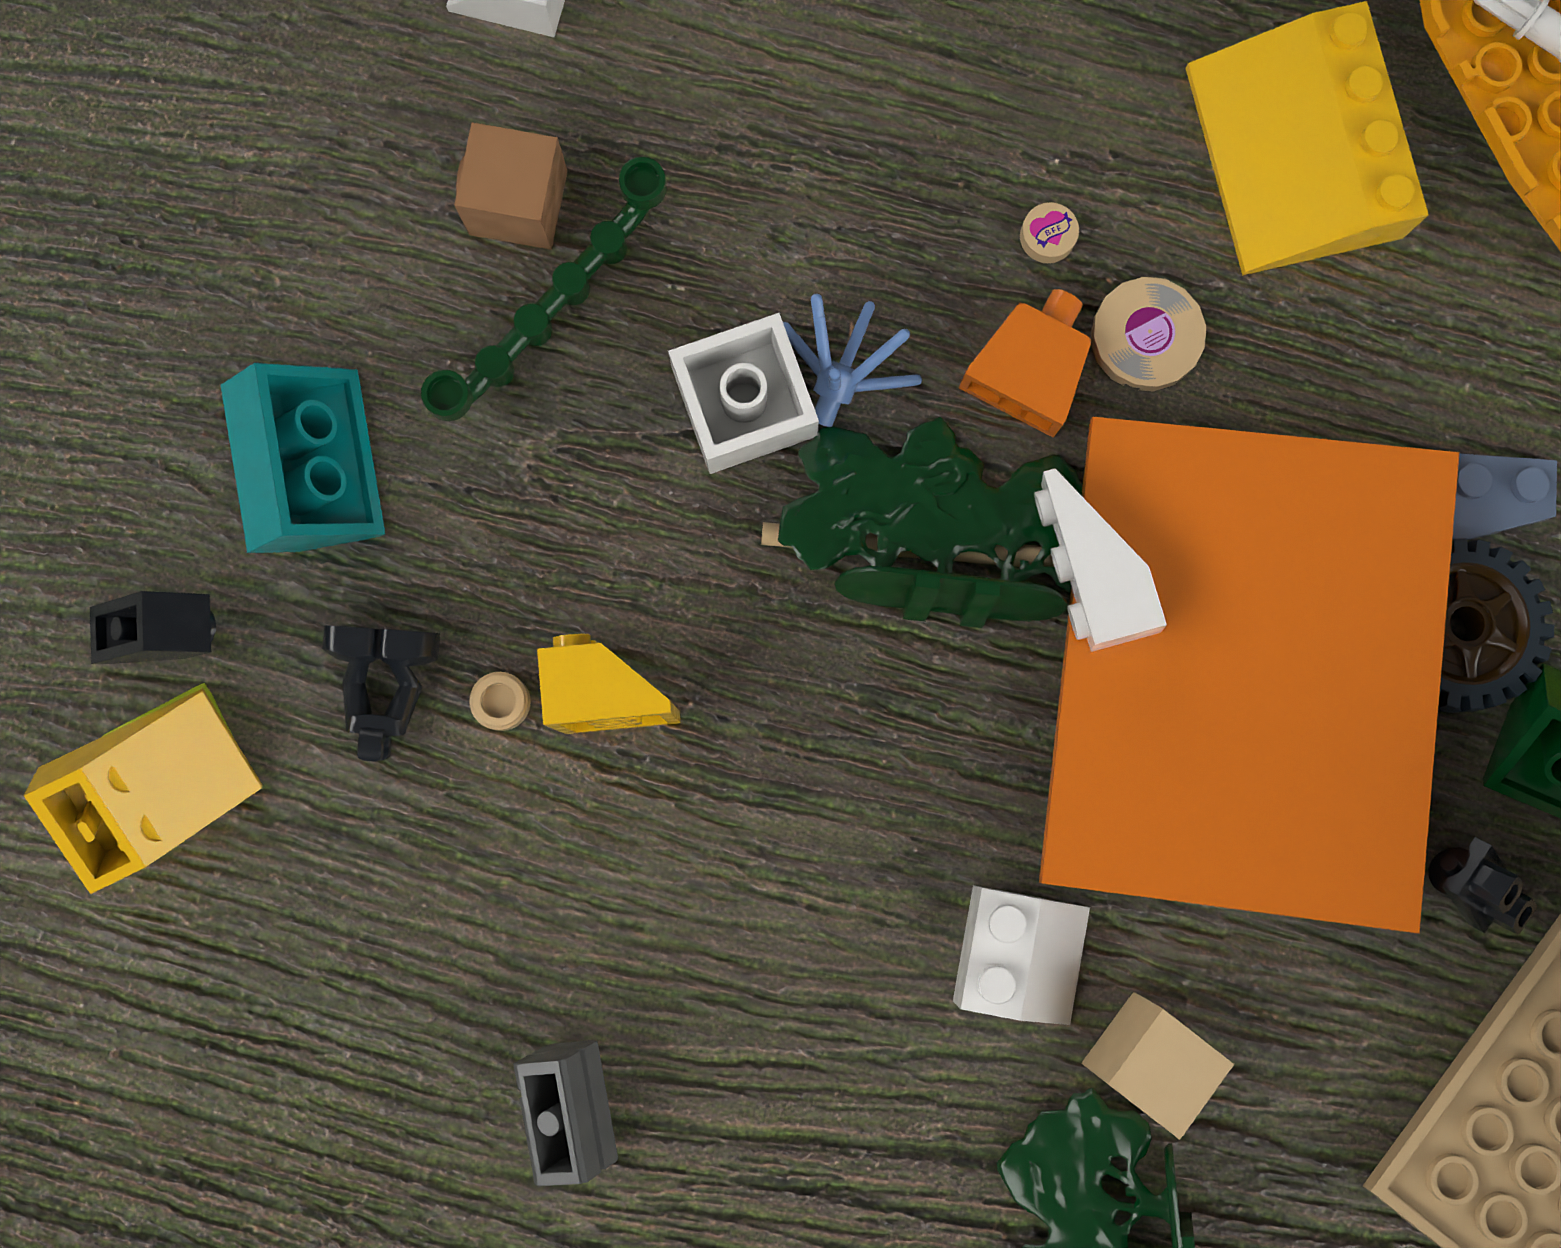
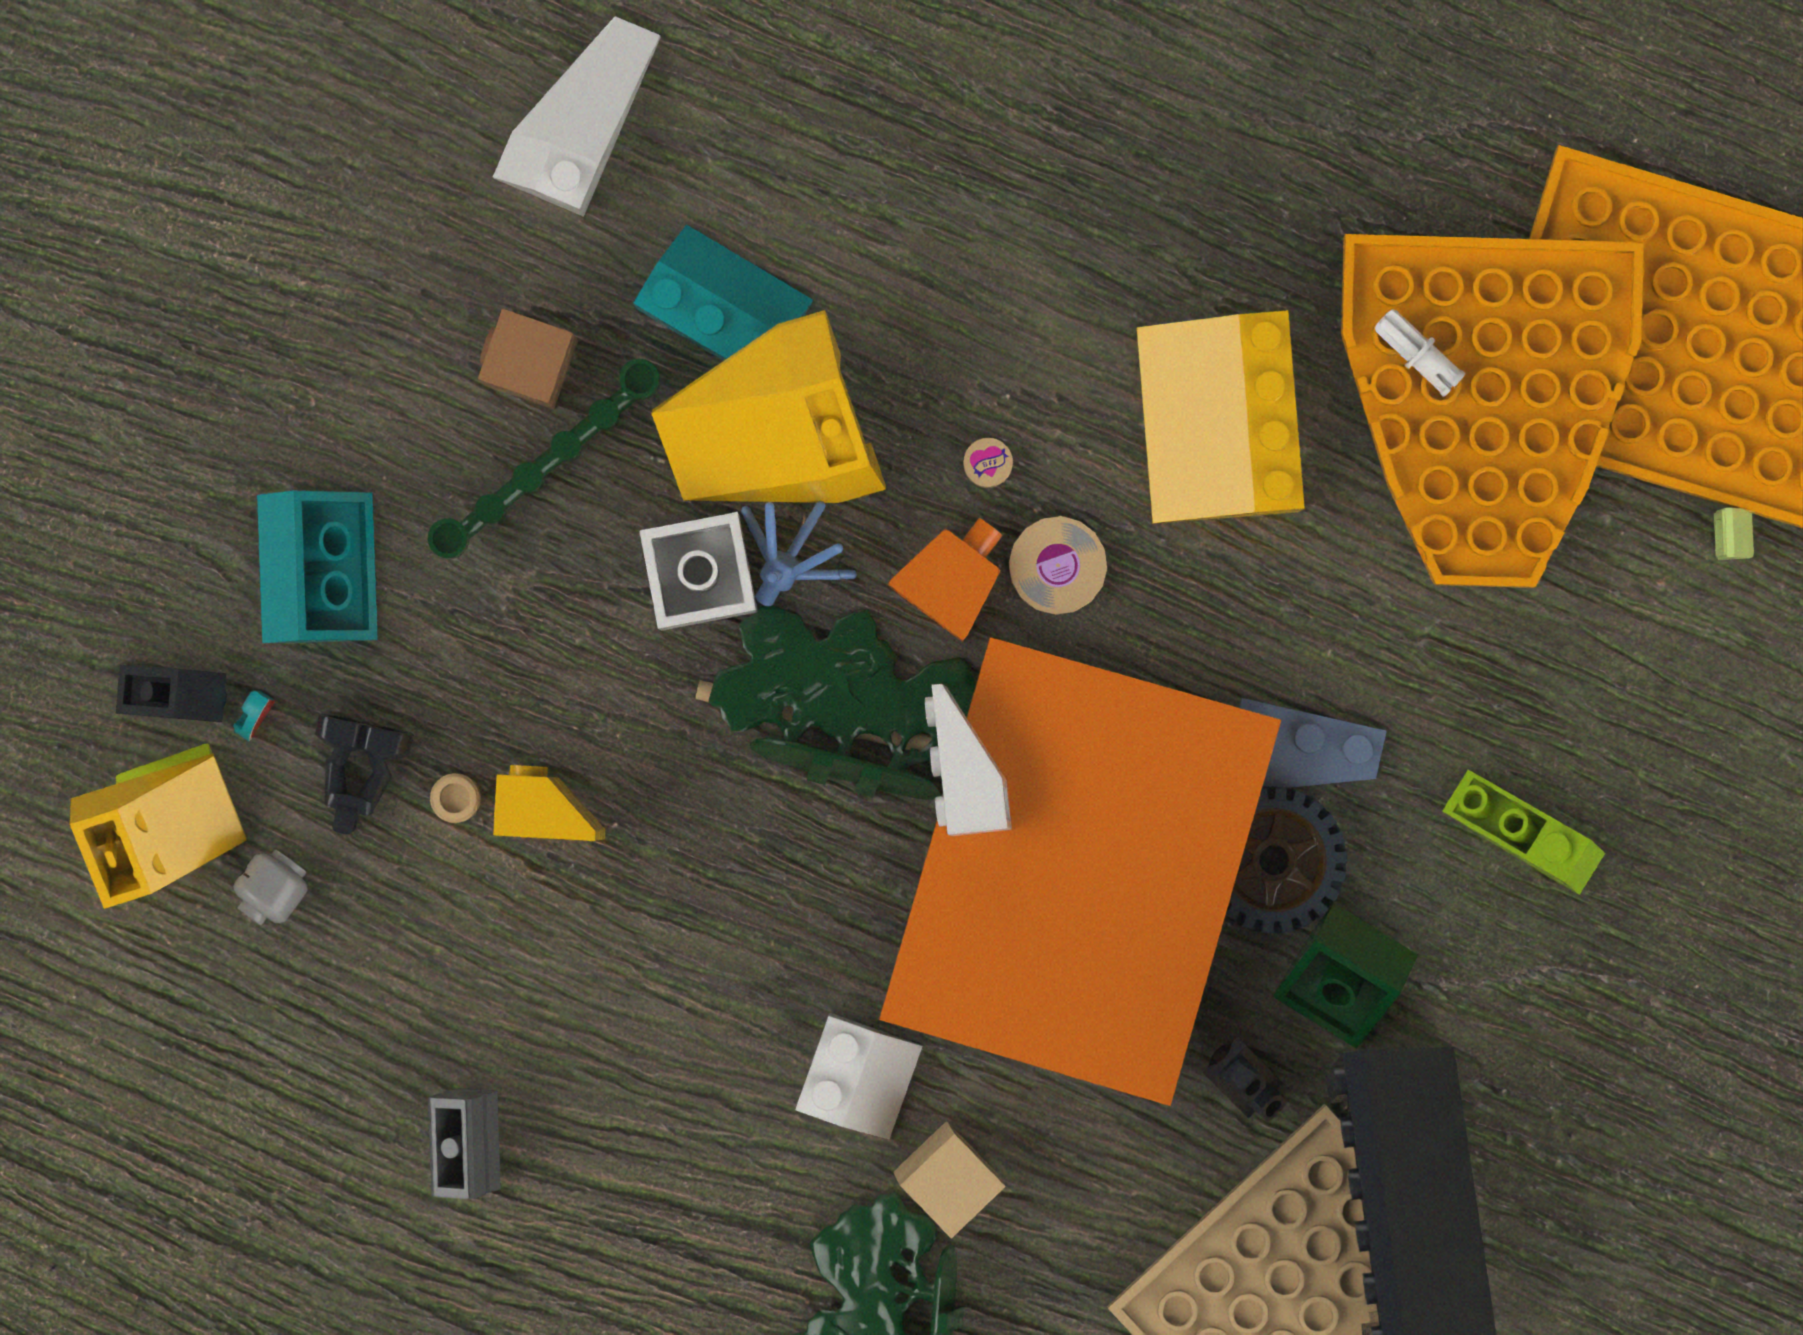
camera: 10 degrees right, 5 degrees up
(253, 633) = (254, 711): none -> teal tile
(293, 839) = (270, 887): none -> light grey head
(720, 105) = (715, 295): none -> teal slope
(803, 212) = (770, 424): none -> yellow wedge

